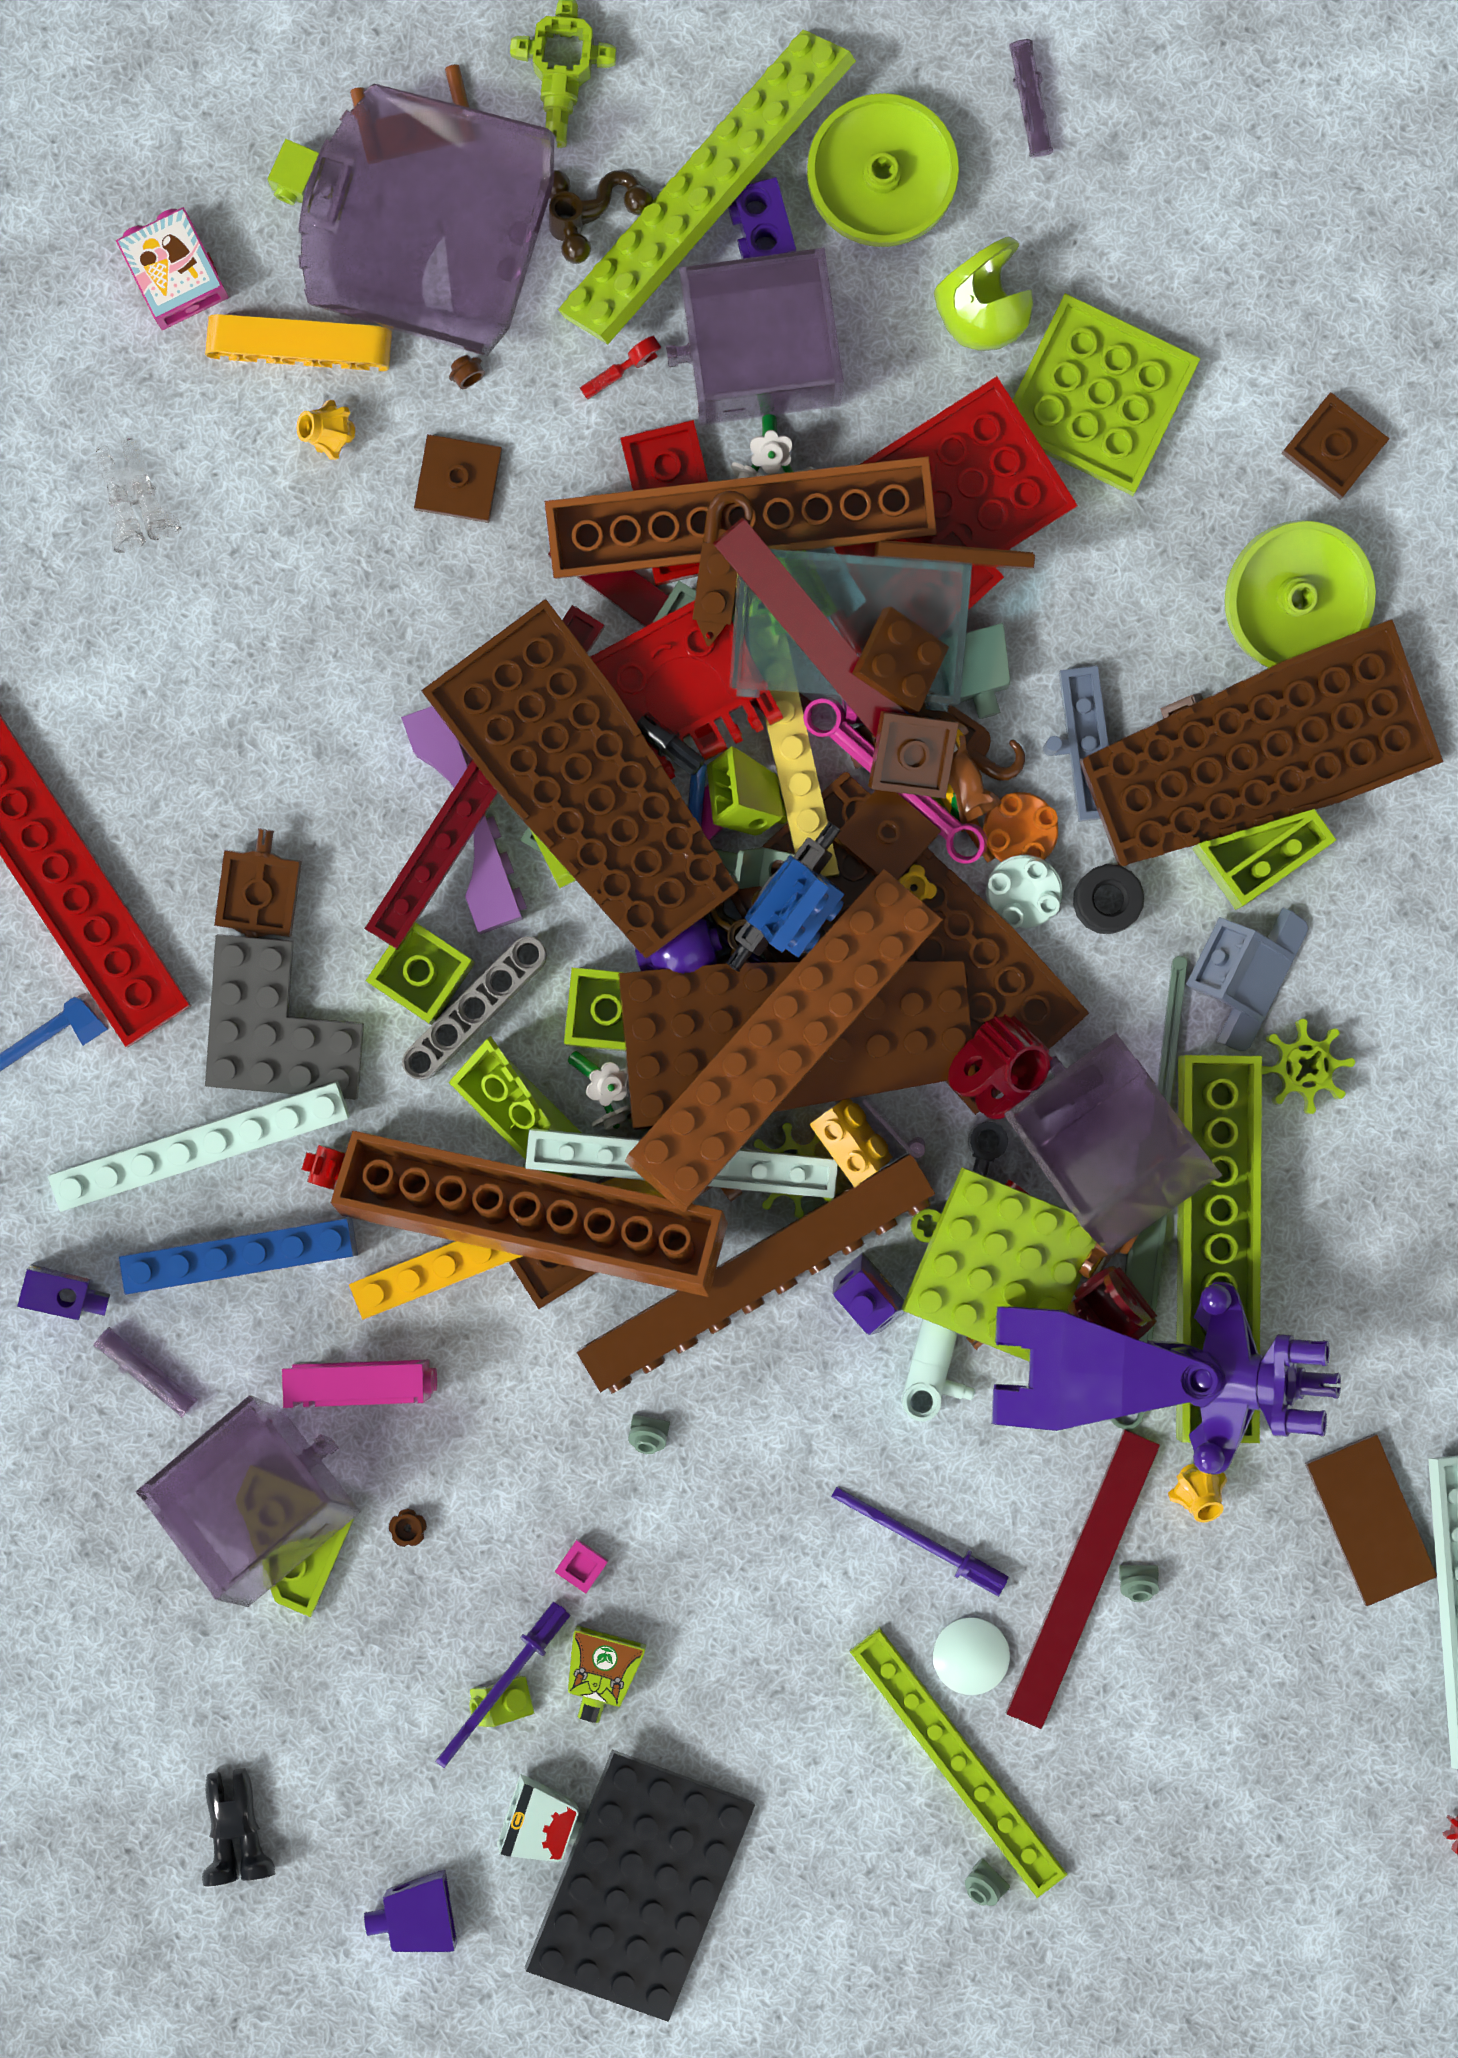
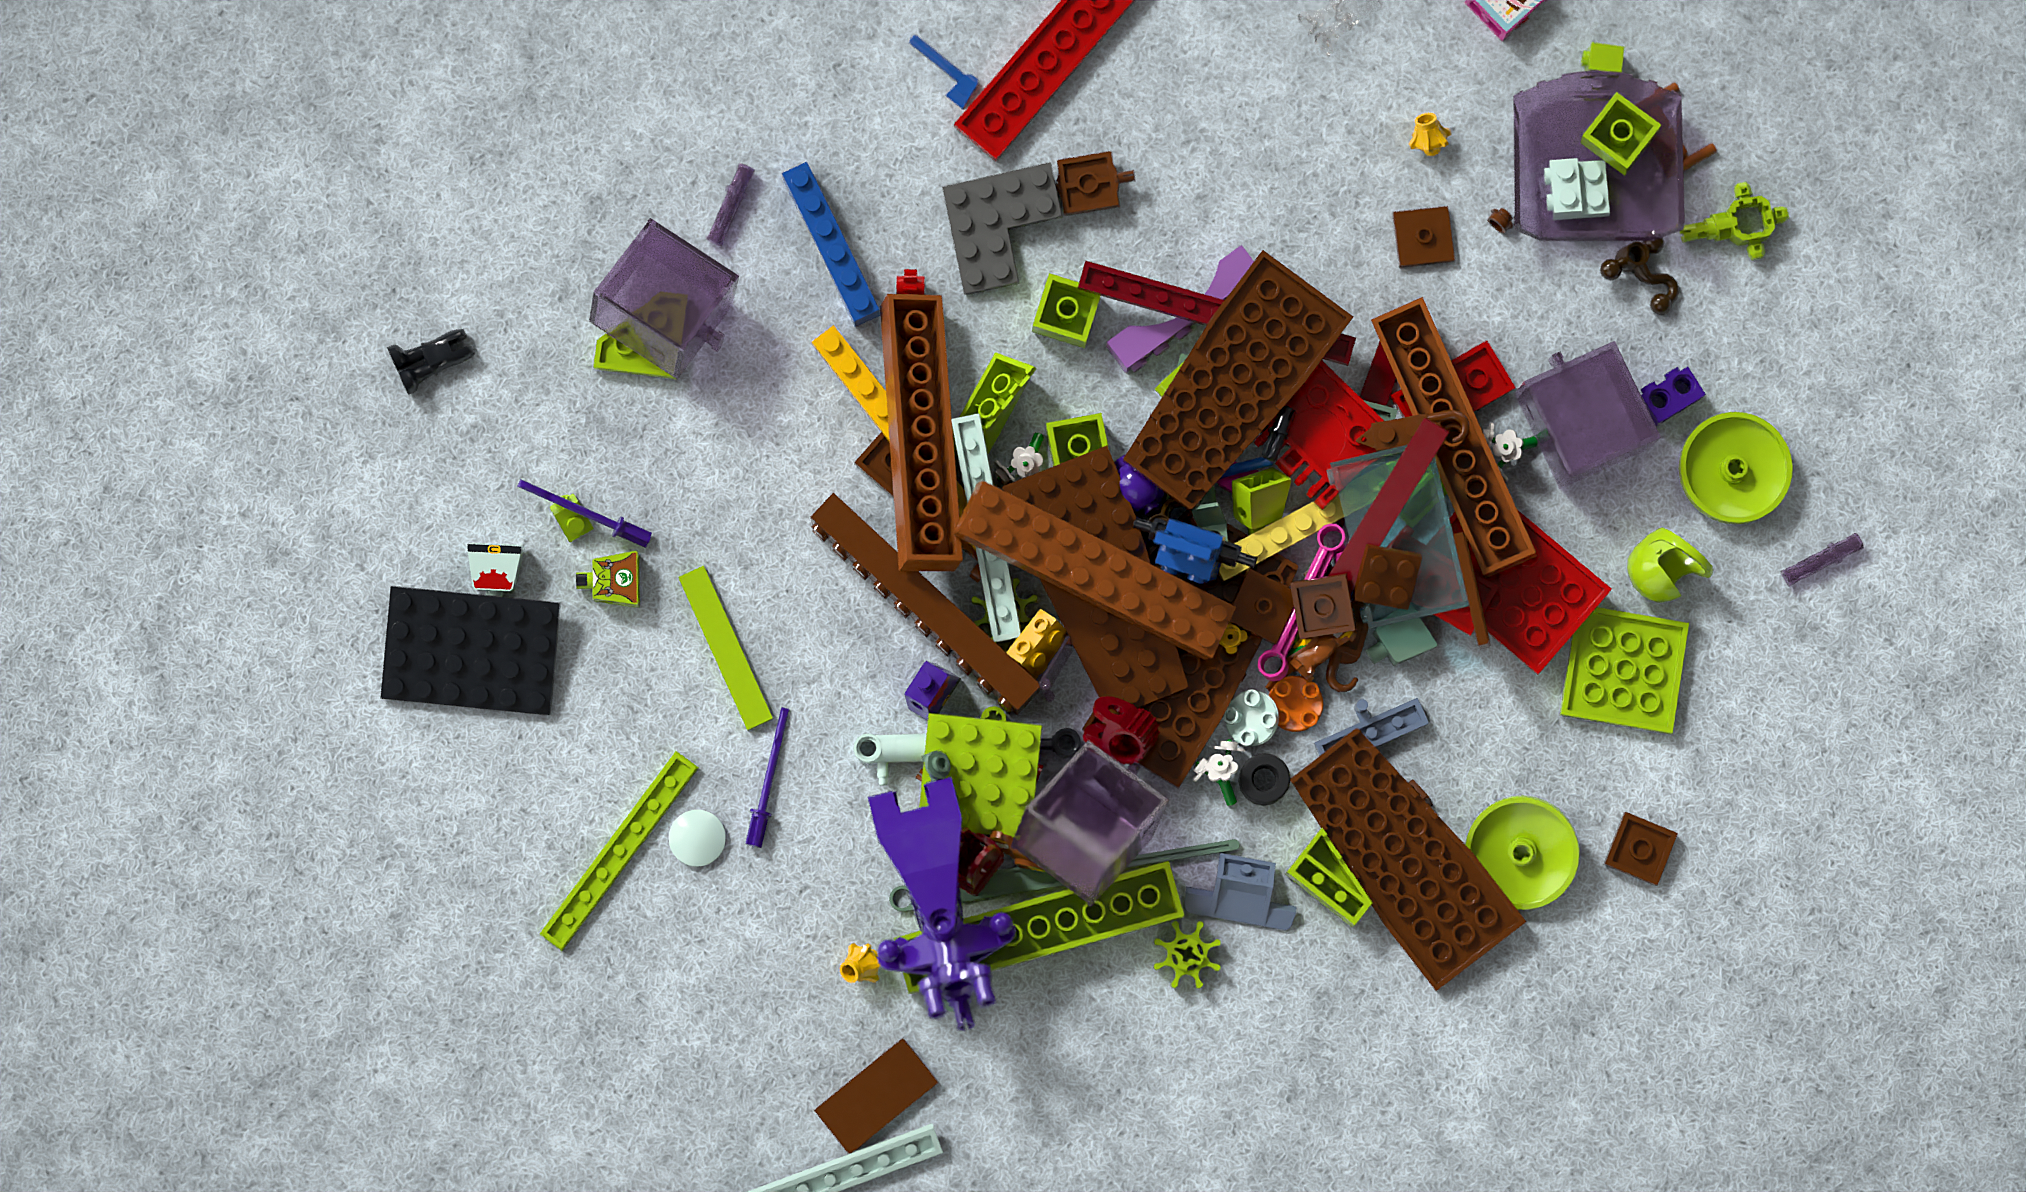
camera: 65 degrees right, 5 degrees down
(42, 1290) = (768, 116): dark purple torso -> none
(199, 1146) = (899, 195): light aqua plate -> none
(299, 341) = (1485, 97): yellow beam -> none
(358, 1383) = (766, 351): dark pink door -> none
(402, 177) = (1620, 133): none -> lime brick
(405, 1538) = (674, 409): reddish brown plate -> none
(416, 1916) = (405, 501): dark purple torso -> none
(456, 259) = (1577, 189): none -> light aqua plate
(456, 1014) = (1043, 345): light grey beam -> none
(581, 1566) = (682, 545): dark pink plate -> none
(638, 356) = (1549, 337): red piece -> none
(648, 1434) = (788, 565): sand green plate -> none
(706, 185) = (1685, 347): lime plate -> none
(732, 1547) = (725, 648): none -> lime tile
(976, 1321) = (936, 764): none -> sand green plate
(985, 1884) = (538, 894): sand green plate -> none
(1081, 952) = (1220, 769): none -> white plant
(1082, 1579) = (774, 901): dark red tile -> none
(1139, 1581) = (783, 942): sand green plate -> none

